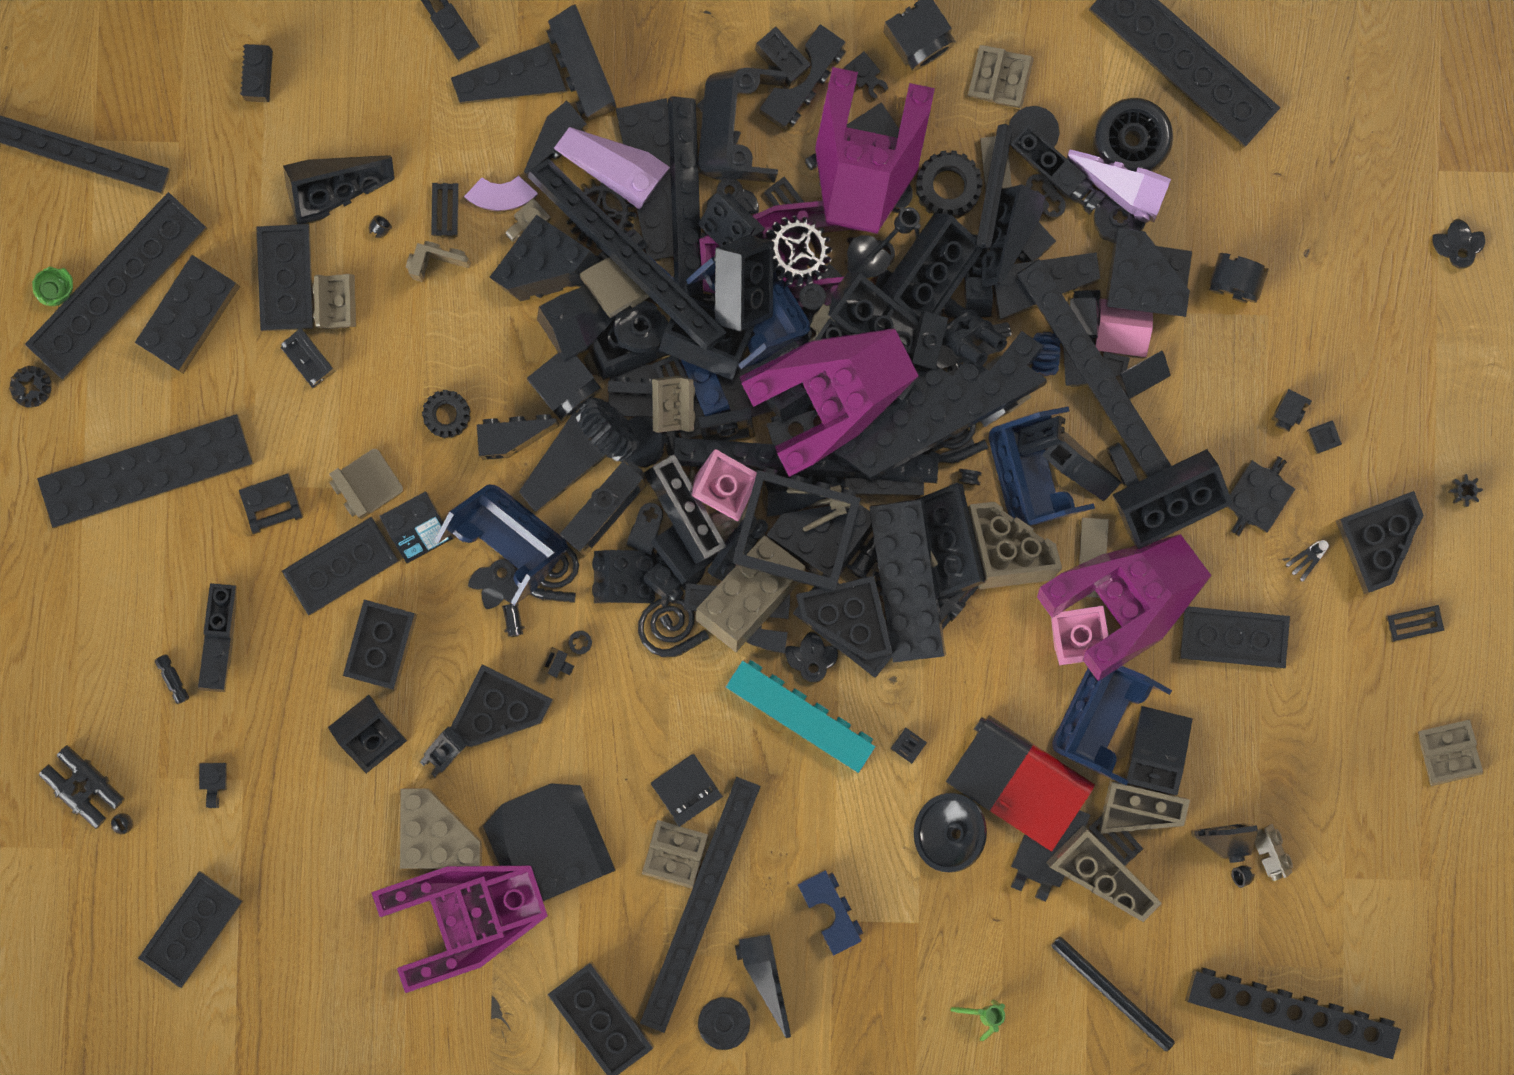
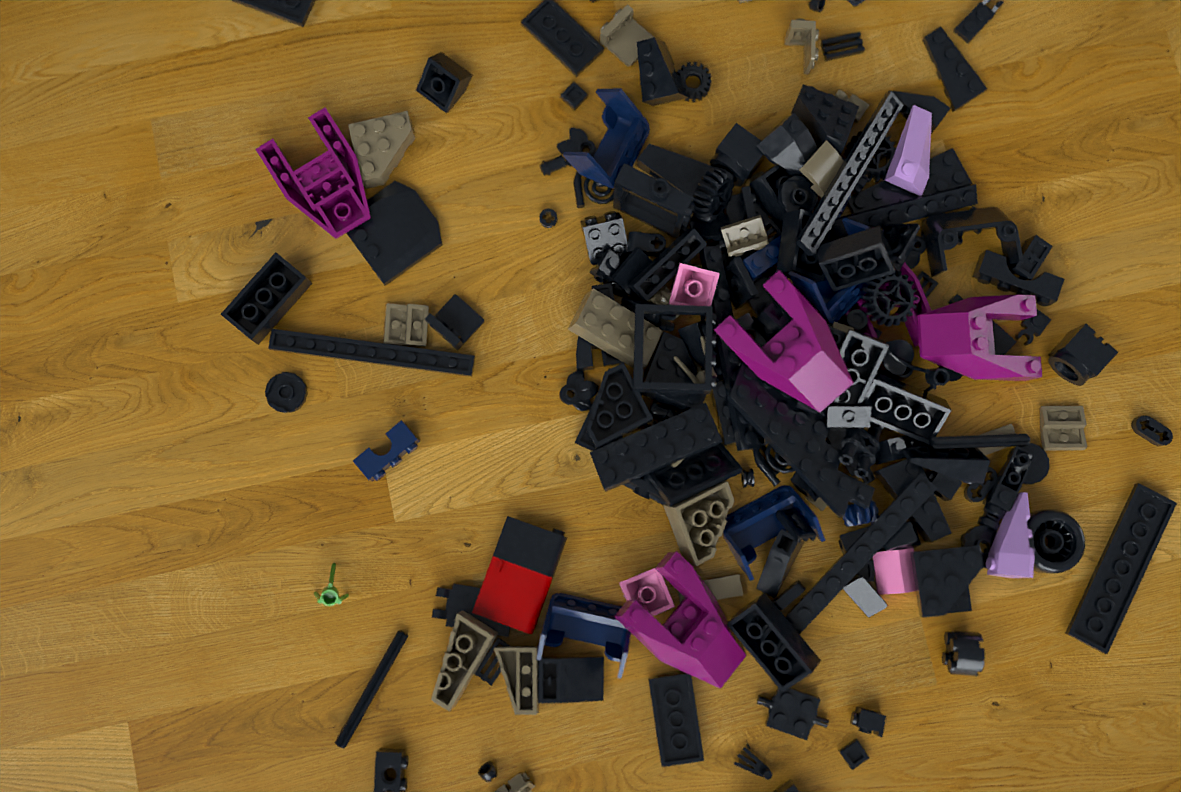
camera: 75 degrees right, 5 degrees down
(380, 644) = (510, 73): black brick -> none
(414, 527) = (603, 73): black slope -> none
(425, 570) = (574, 96): none -> black tile
(429, 457) = (657, 73): none -> black wedge
(443, 751) = (442, 133): black hinge -> none
(498, 708) = (484, 166): black brick -> none
(501, 196) = (863, 82): lavender tile -> none
(507, 438) = (688, 128): black slope -> none
(556, 662) = (528, 203): black tile -> none
(582, 64) = (980, 114): black slope -> none
(666, 621) = (578, 278): black piece -> none
(761, 965) = (332, 410): black wedge -> none
(800, 716) = (531, 393): teal brick -> none
(908, 745) = (529, 481): black tile -> none
(937, 829) = (464, 520): black dish -> none
(949, 162) = (985, 402): black tyre -> none
(1229, 841) = (513, 754): black wedge -> none

